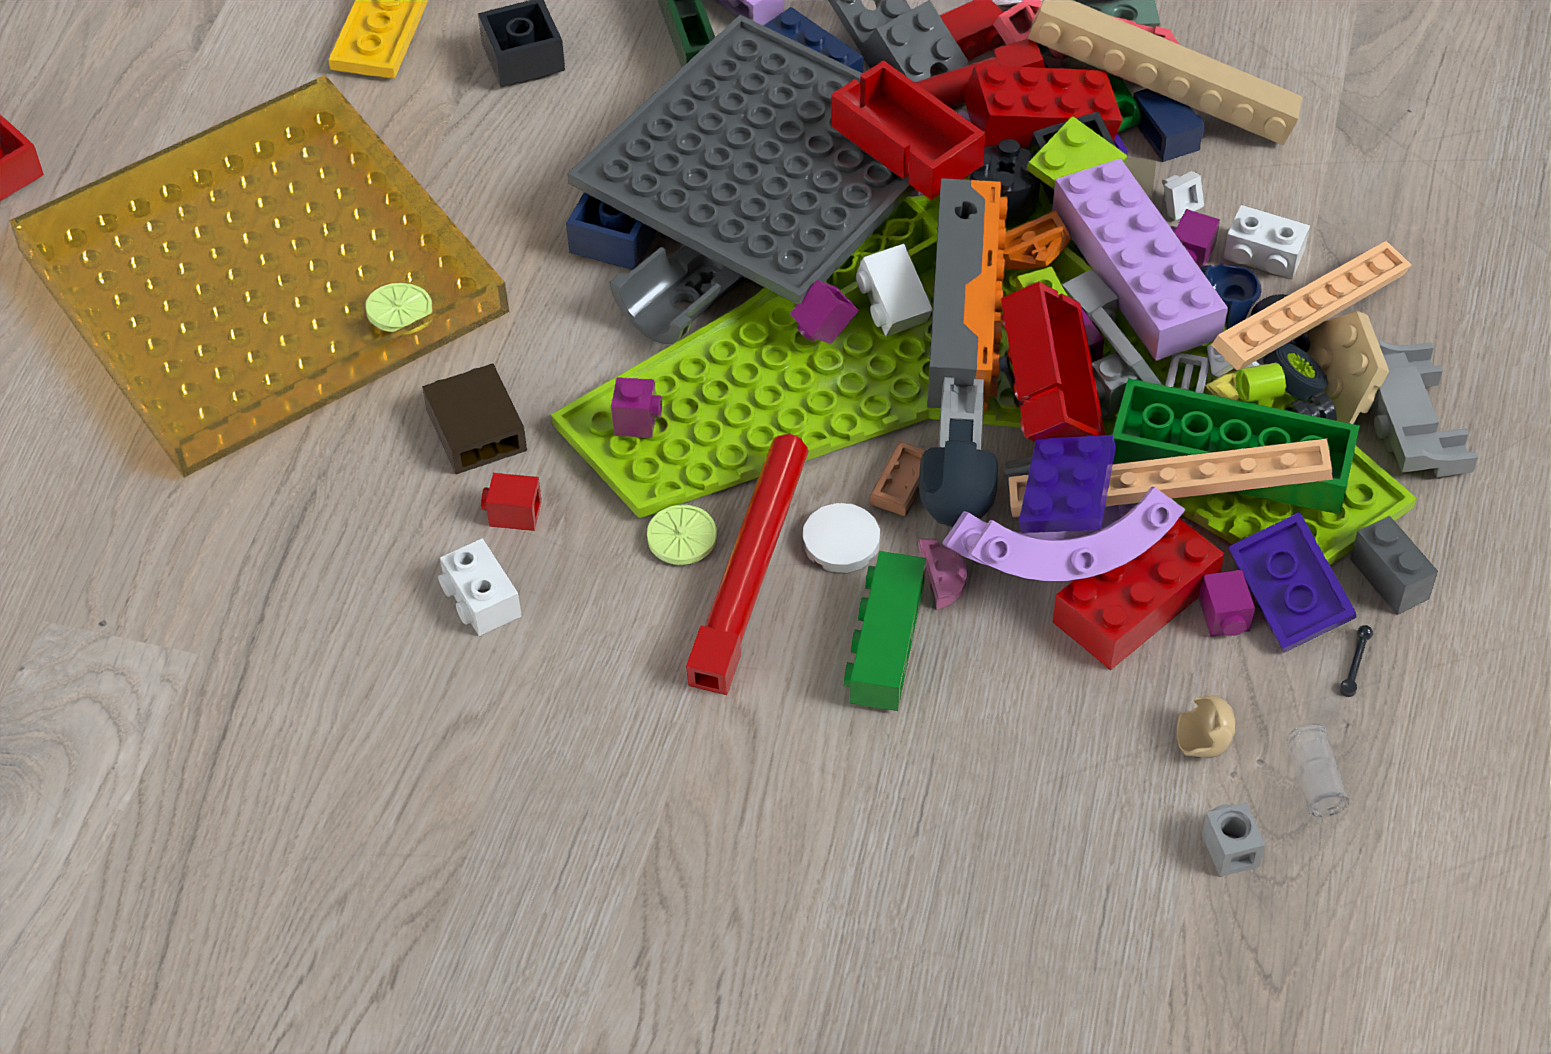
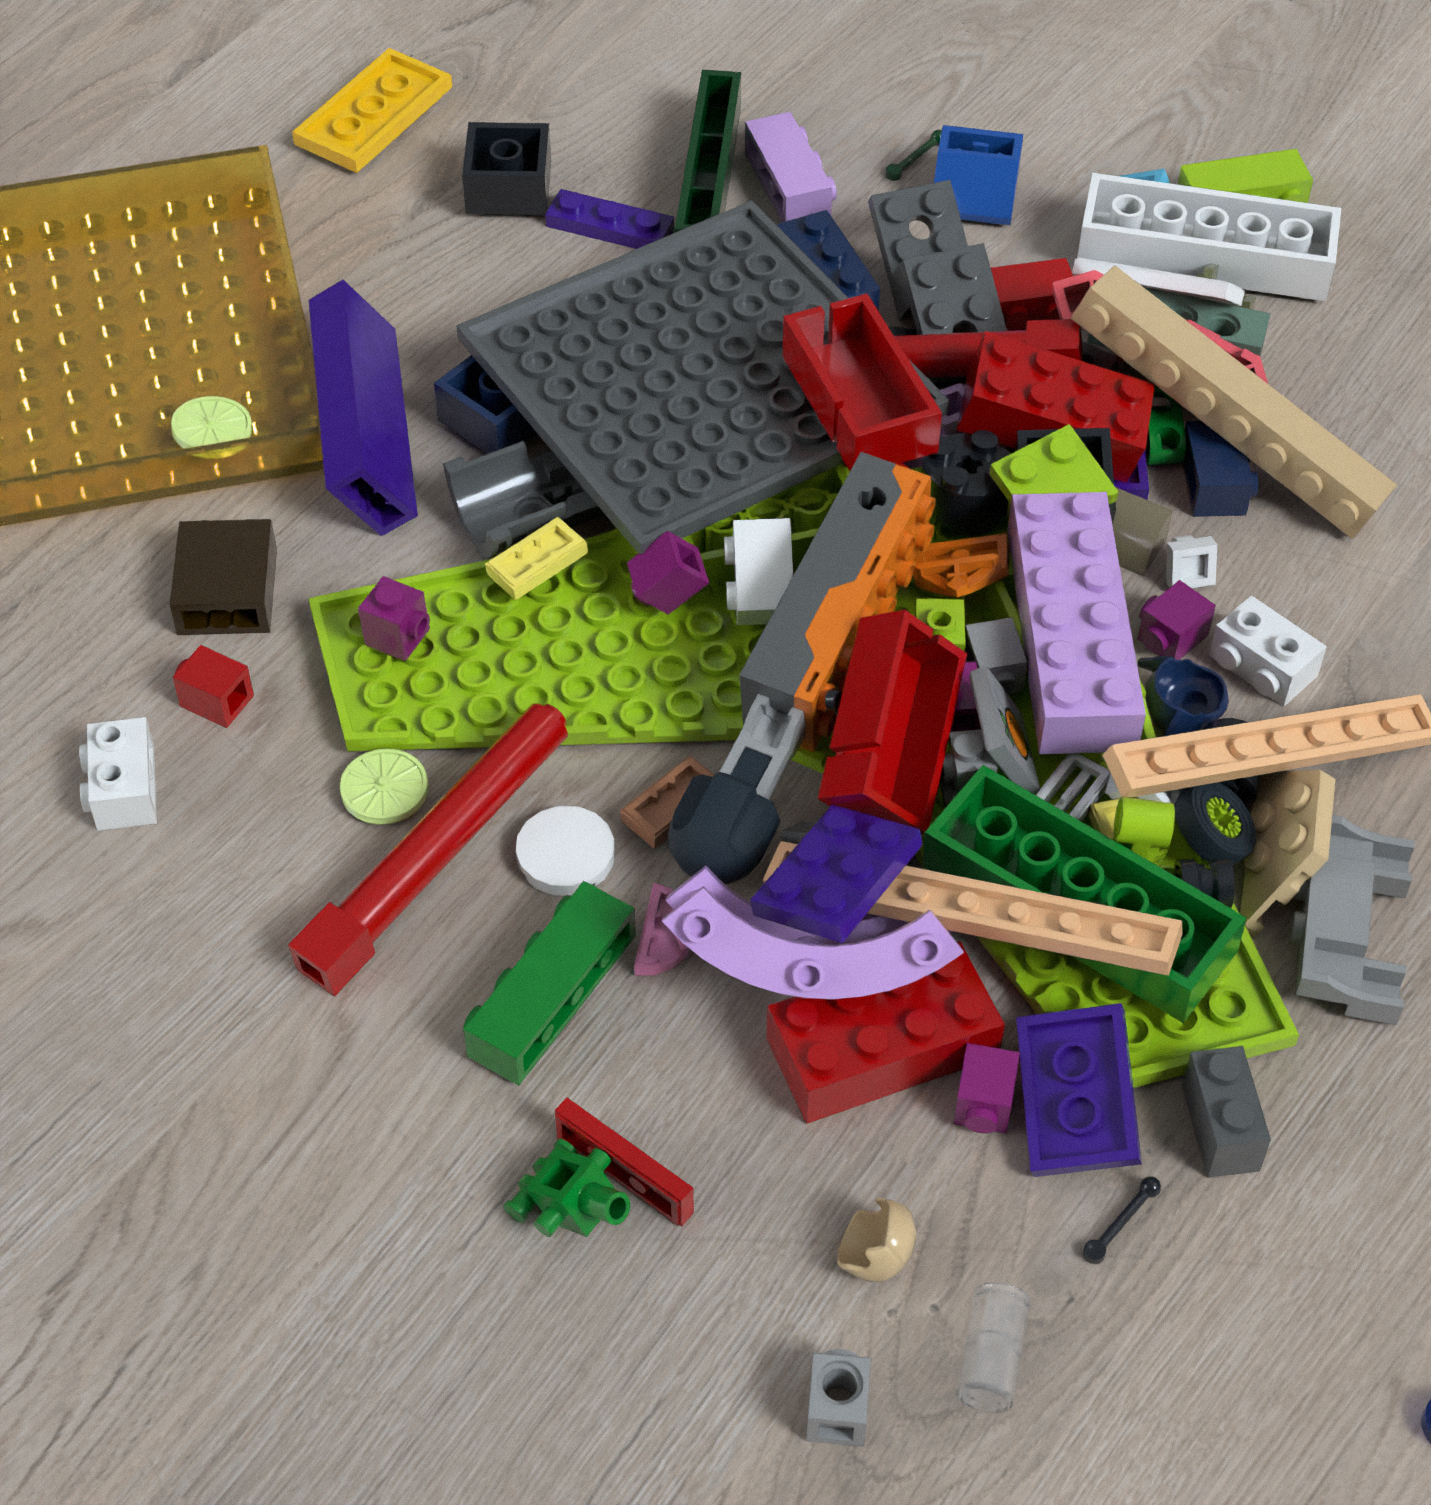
camera: 20 degrees right, 0 degrees up
(516, 258) = (361, 409): none -> dark purple brick
(617, 62) = (607, 220): none -> dark purple plate
(714, 331) = (536, 558): none -> light yellow plate
(979, 767) = (569, 1192): none -> green piece
(1004, 735) = (628, 1163): none -> red tile

